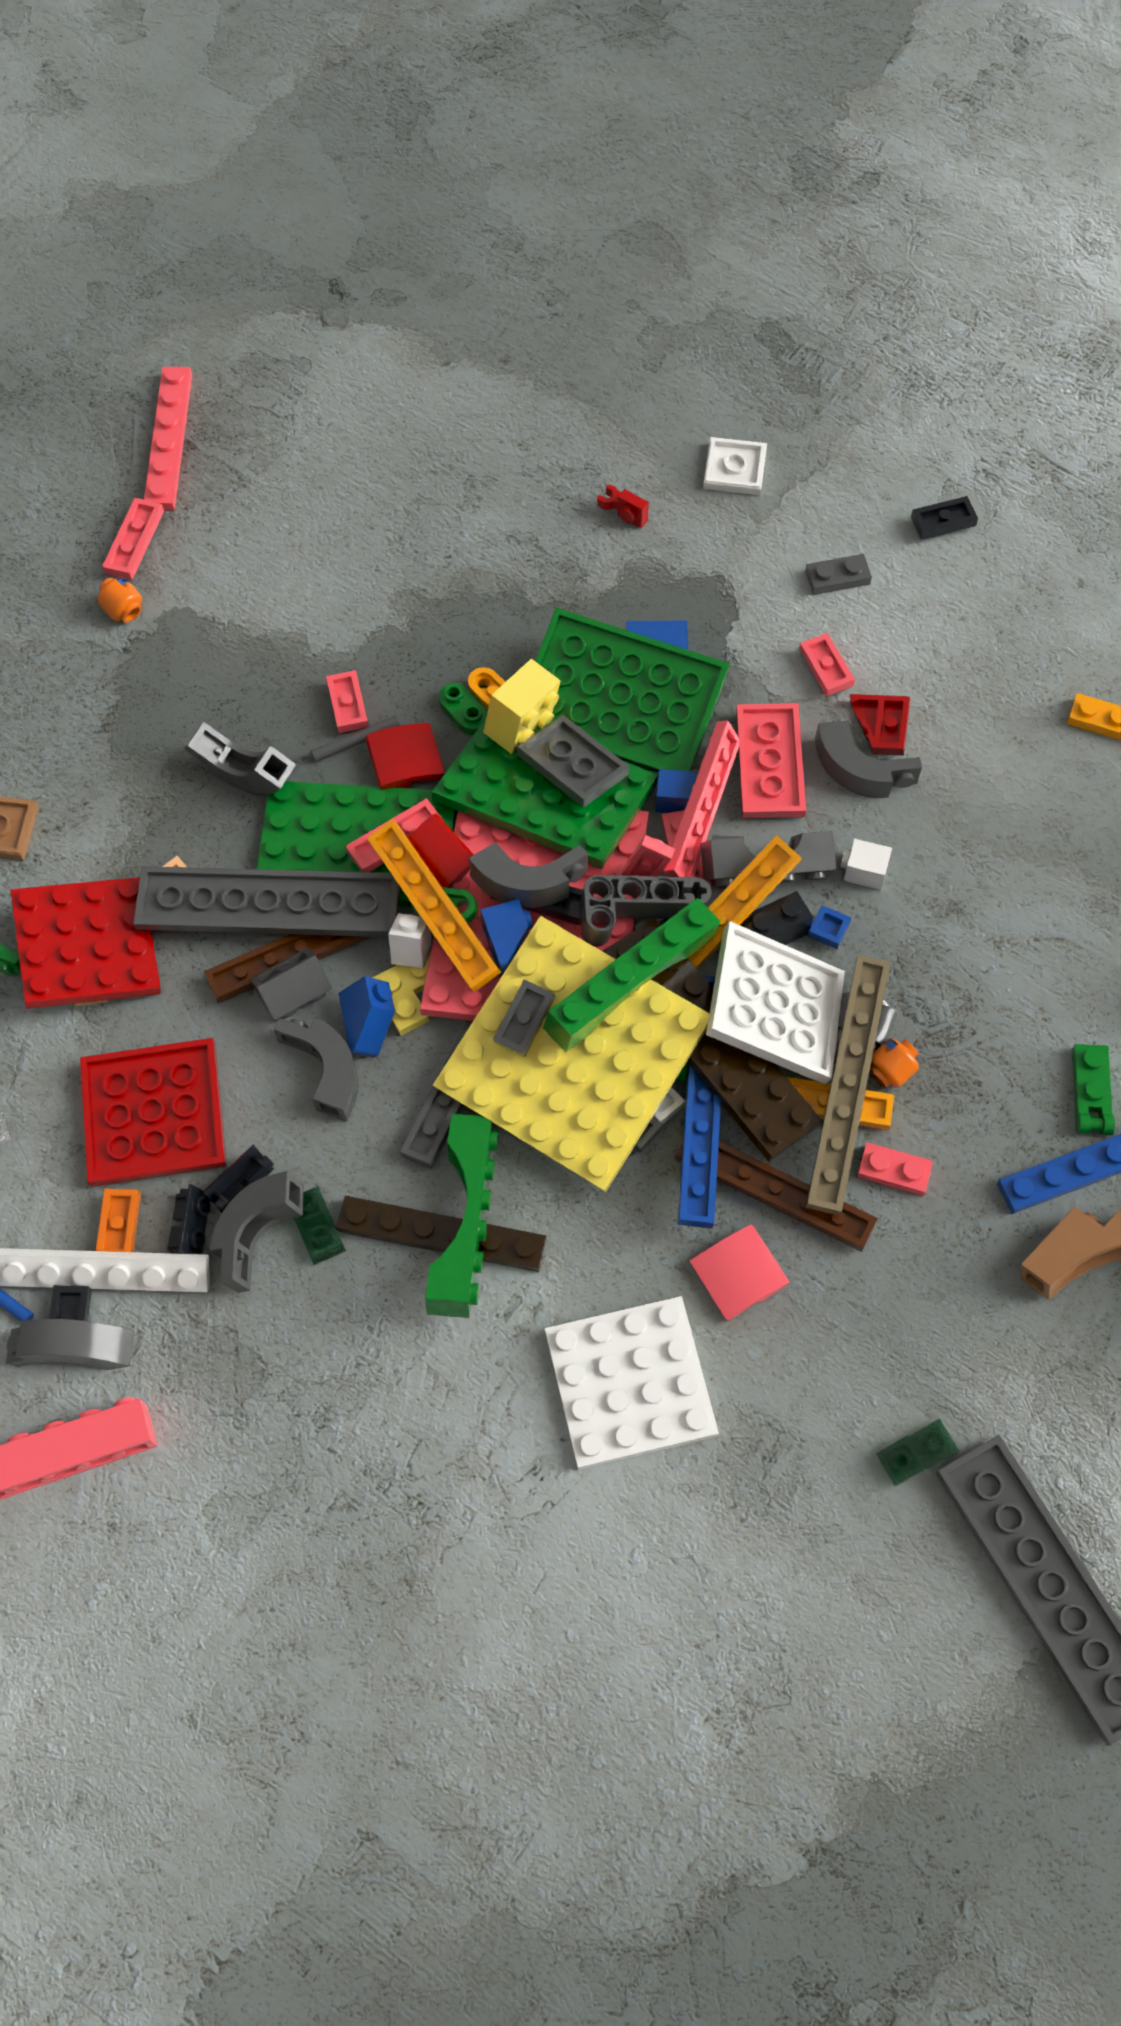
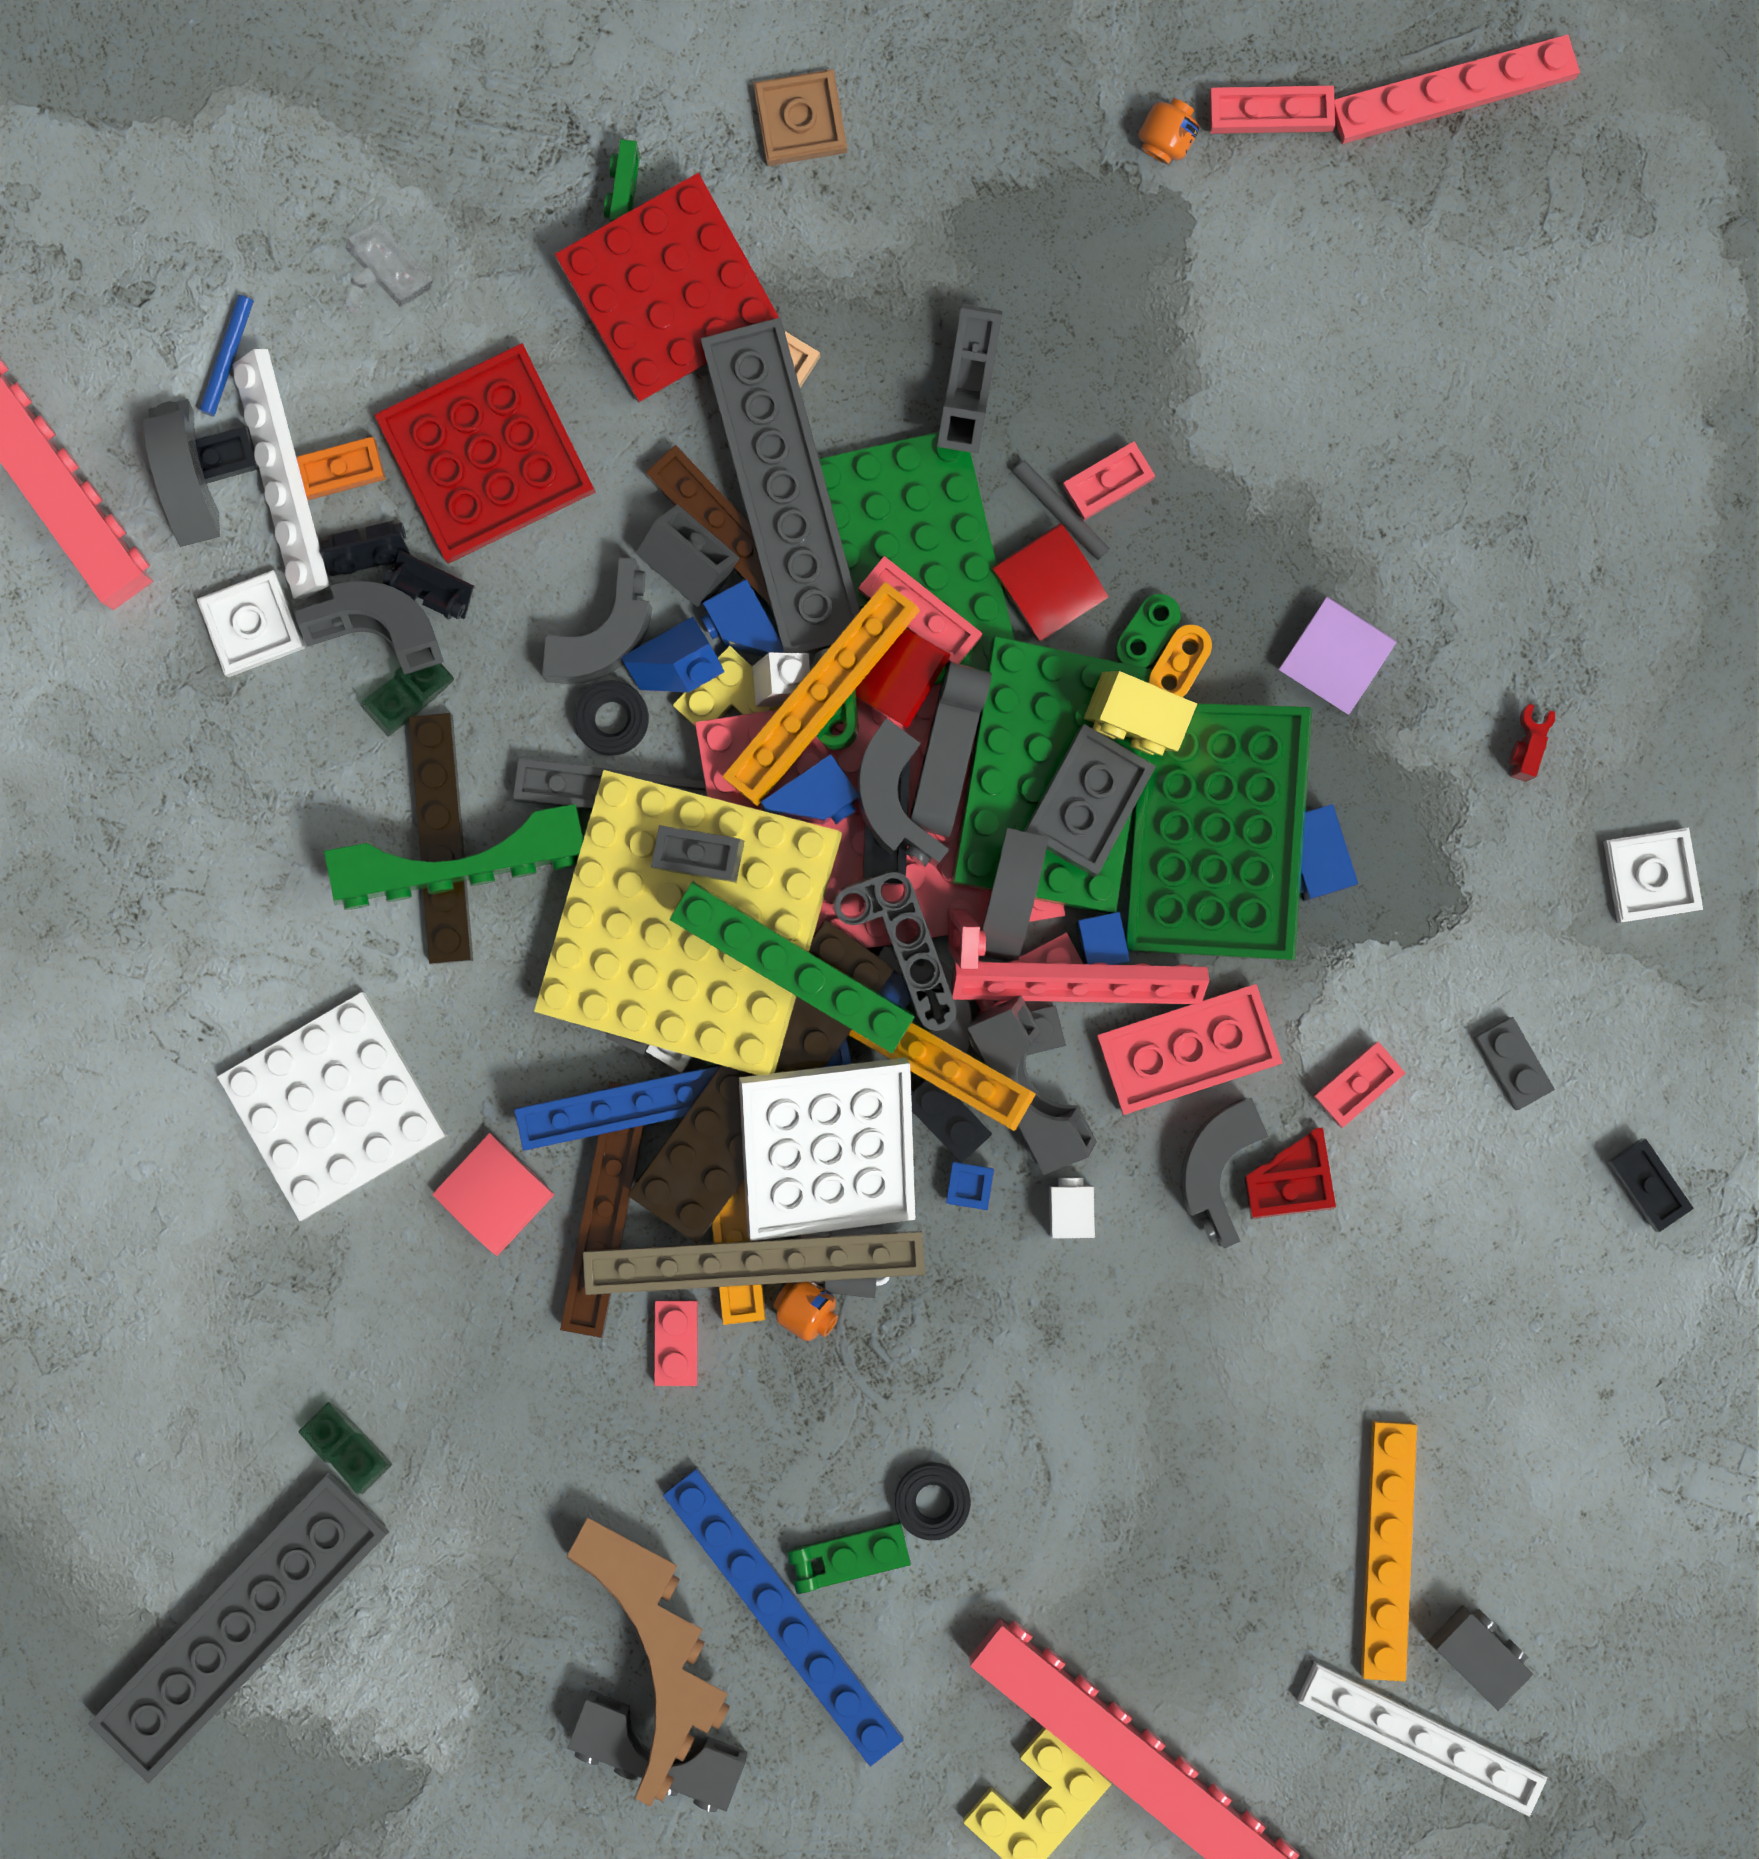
camera: 75 degrees right, 20 degrees up
(213, 1333) = (250, 623): none -> white tile
(356, 958) = (741, 621): none -> blue slope
(392, 1098) = (593, 699): none -> black tyre
(480, 828) = (949, 748): none -> dark grey beam
(523, 598) = (1338, 655): none -> lavender slope
(621, 815) = (1013, 893): none -> dark grey arch
(1073, 1003) = (938, 1527): none -> black tyre

